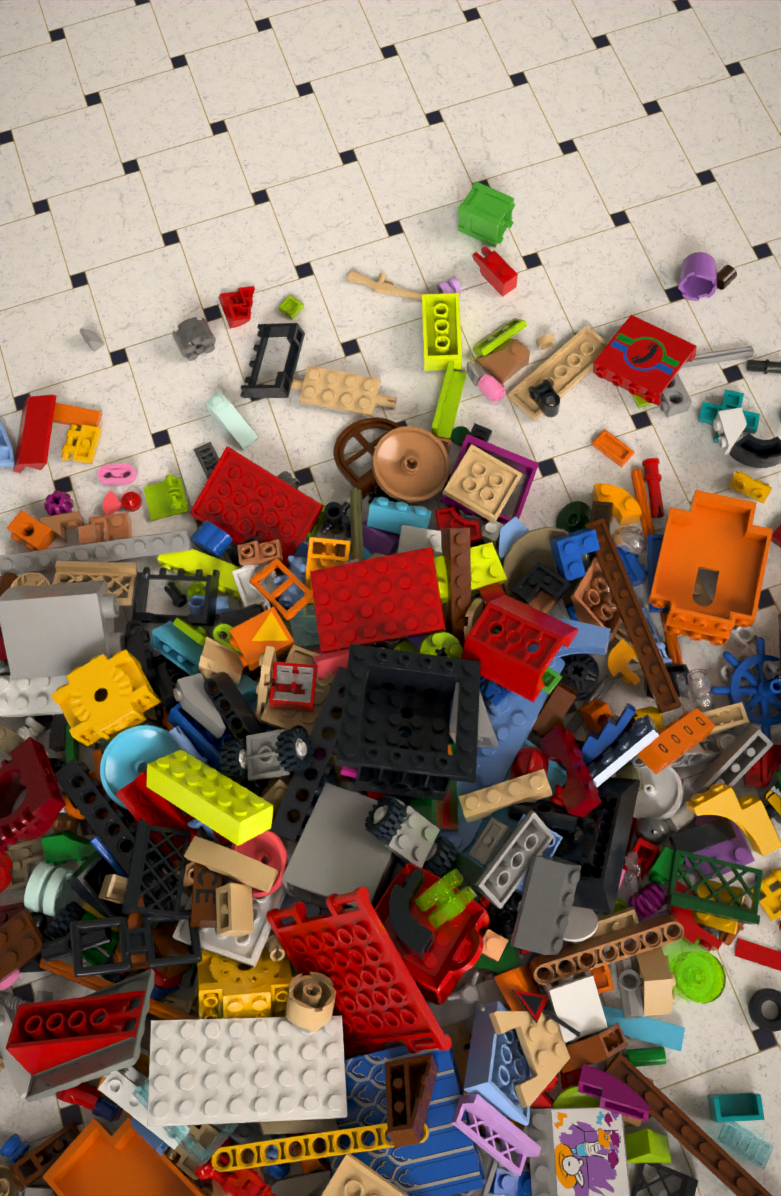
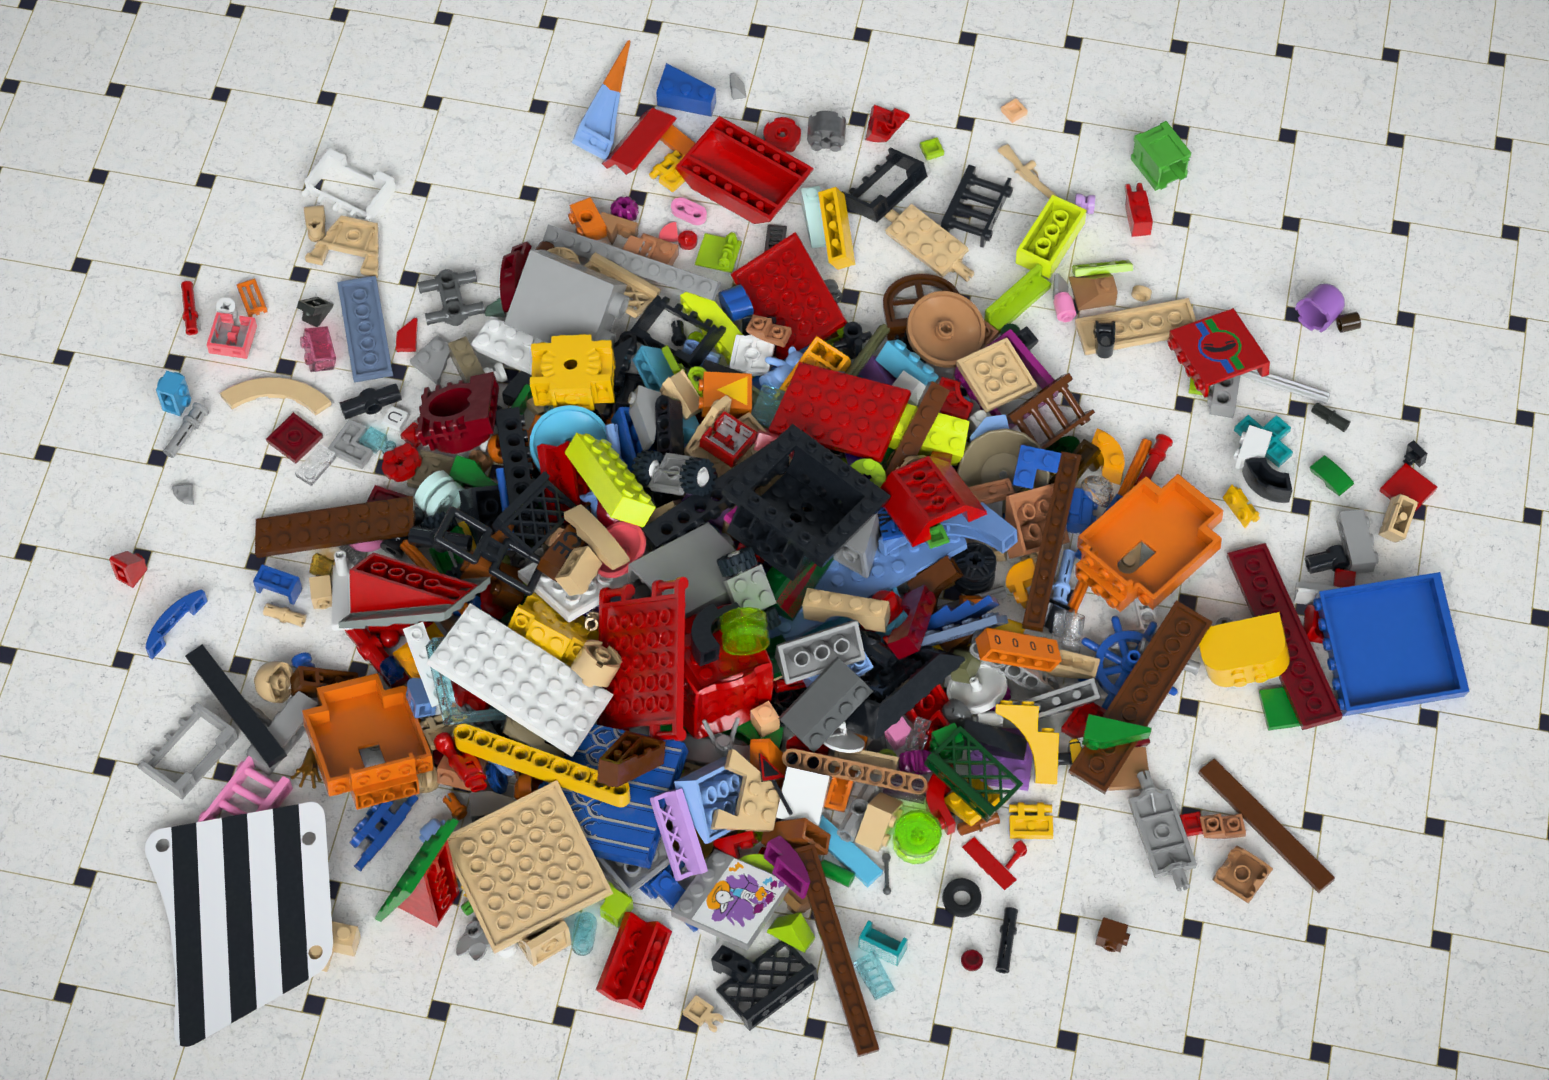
camera: 25 degrees right, 10 degrees down
(49, 367) = (685, 93): none -> blue wedge
(113, 888) = (492, 511): tan brick -> none
(144, 413) = (742, 171): none -> red slope
(159, 370) = (792, 134): none -> red plate
(257, 421) = (836, 228): none -> yellow brick
(291, 612) = (766, 386): orange window -> none
(337, 238) = (1014, 110): none -> light nougat tile
(347, 347) = (964, 193): none -> black fence
(529, 487) = (1046, 395): none -> reddish brown fence
(540, 579) = (988, 471): black plate -> none
(613, 448) = (1140, 413): orange tile -> none
(678, 1010) = (886, 858): none -> dark grey hinge

